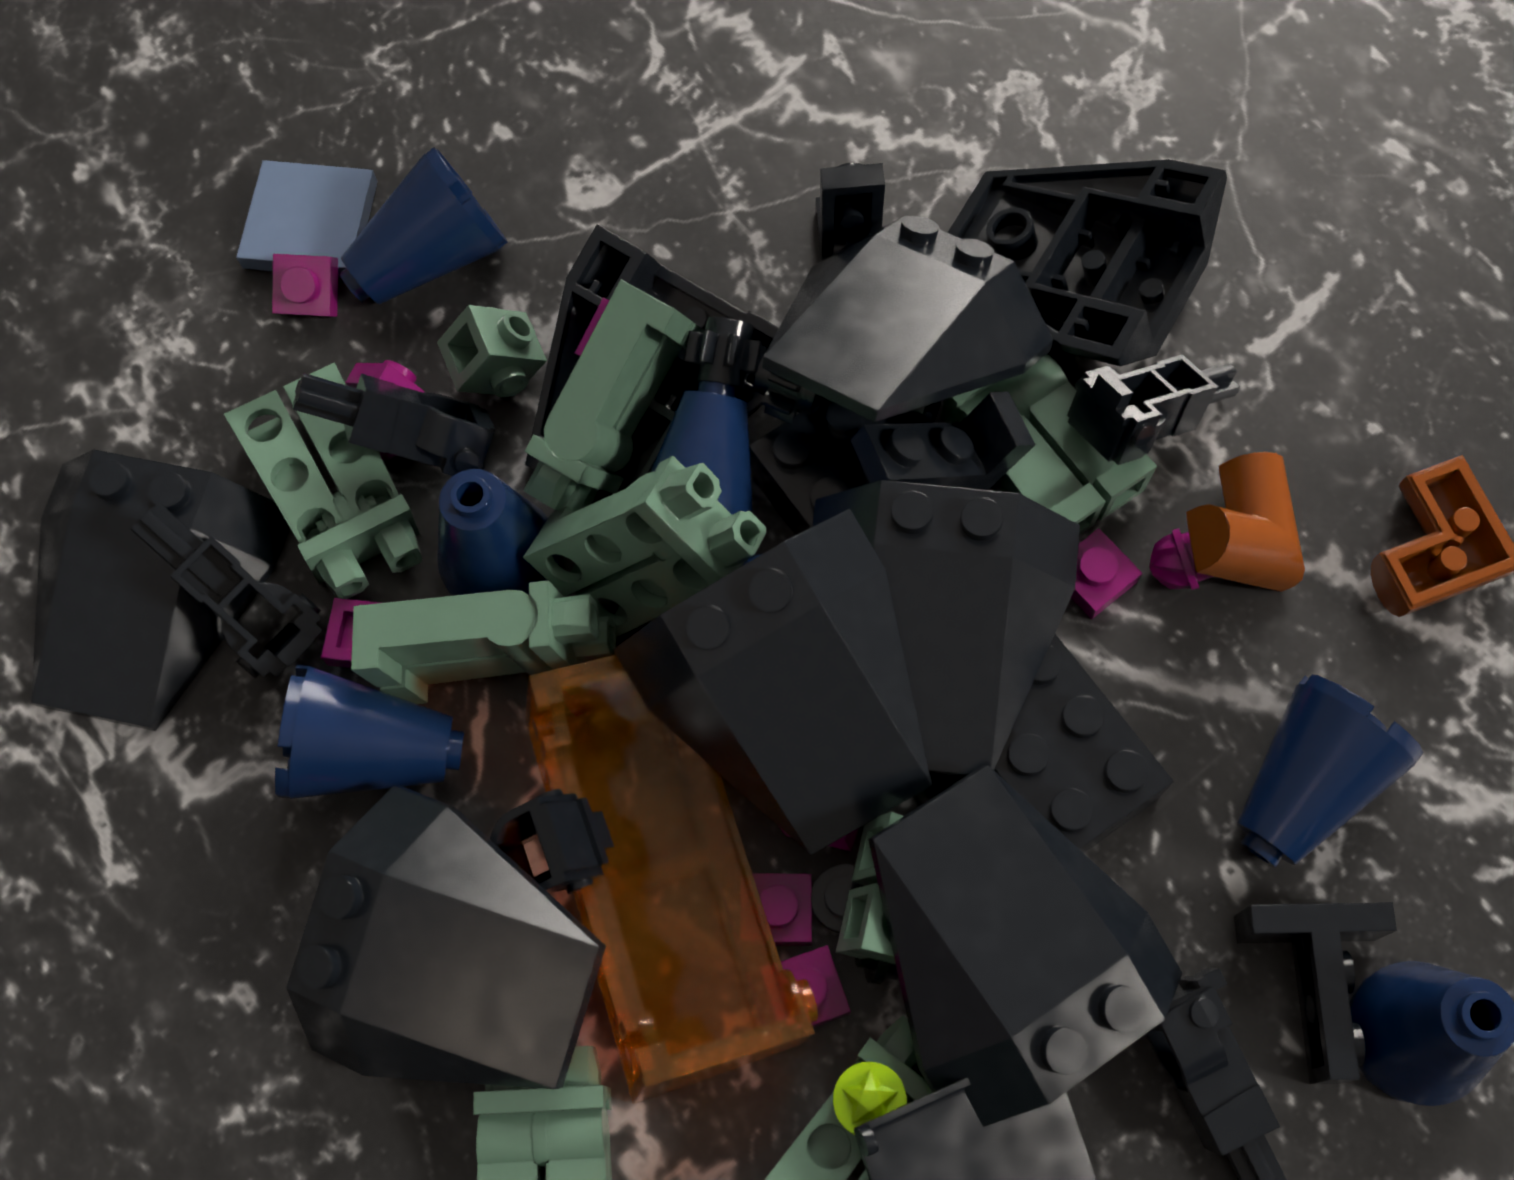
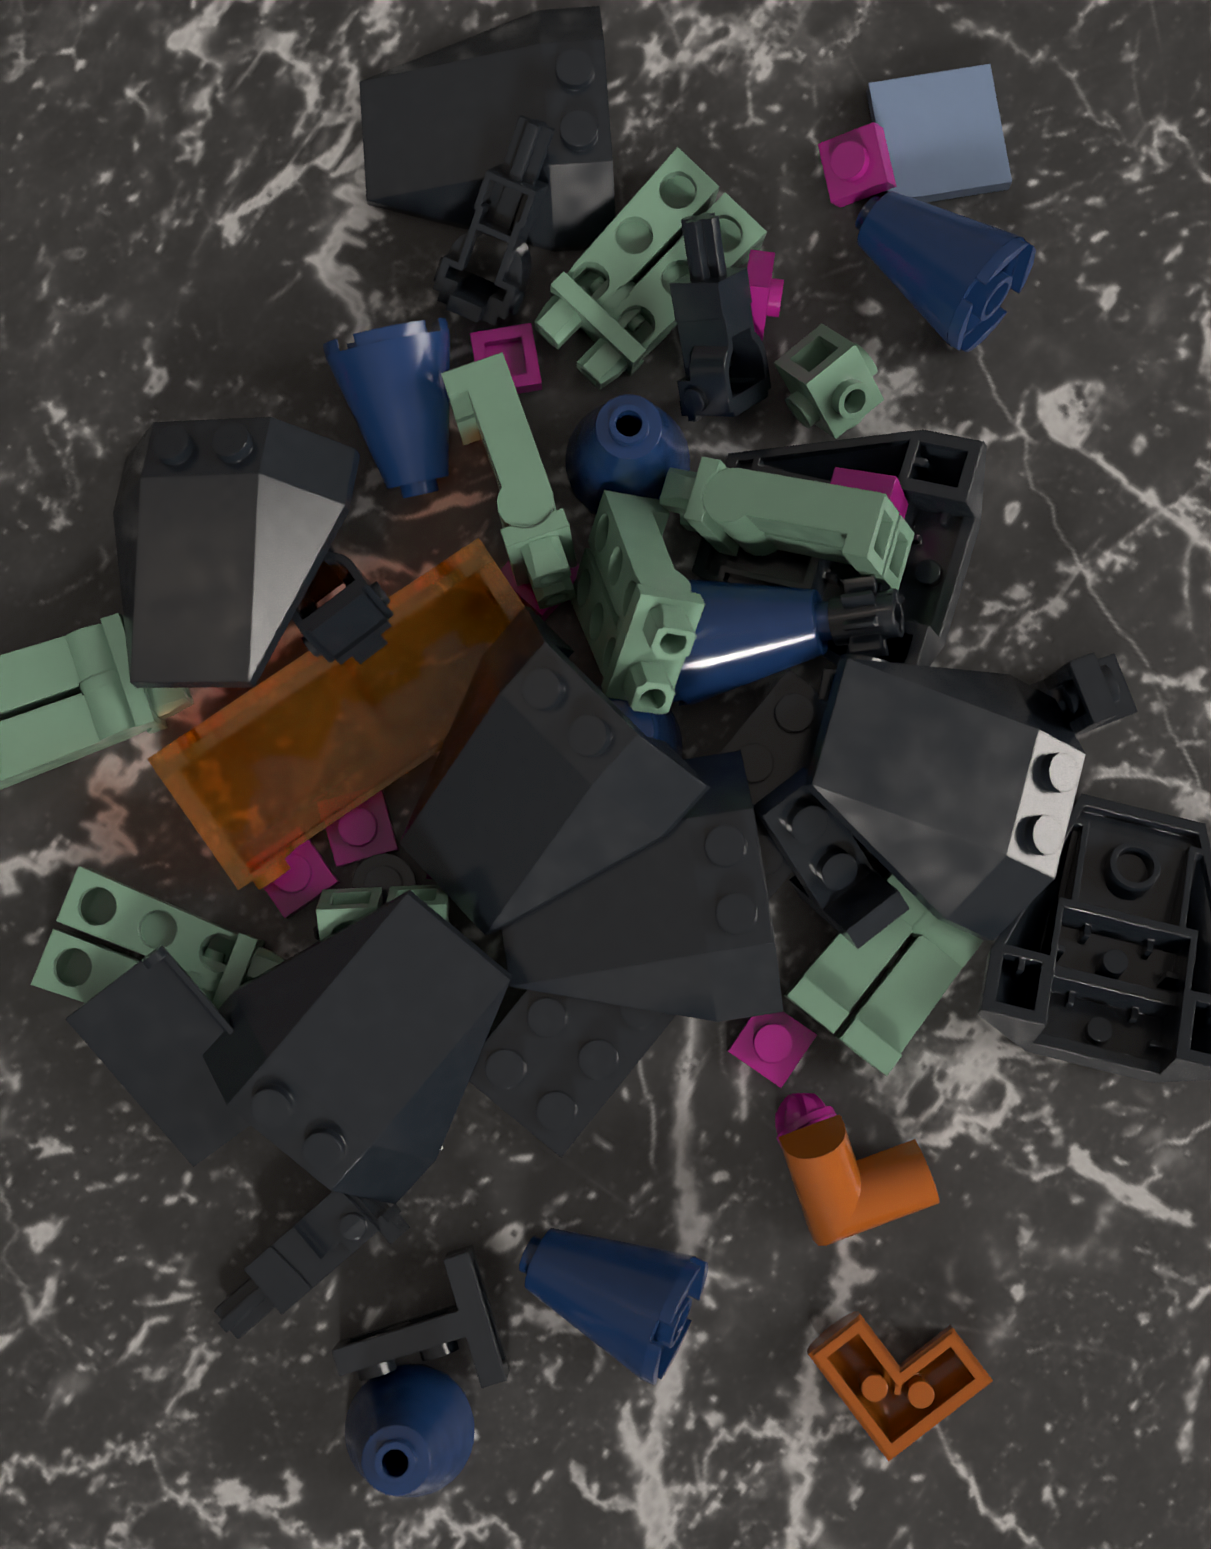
camera: 70 degrees right, 15 degrees up
(867, 1093) = (203, 951): lime tile -> none
(1134, 409) = (965, 1066): black piece -> none

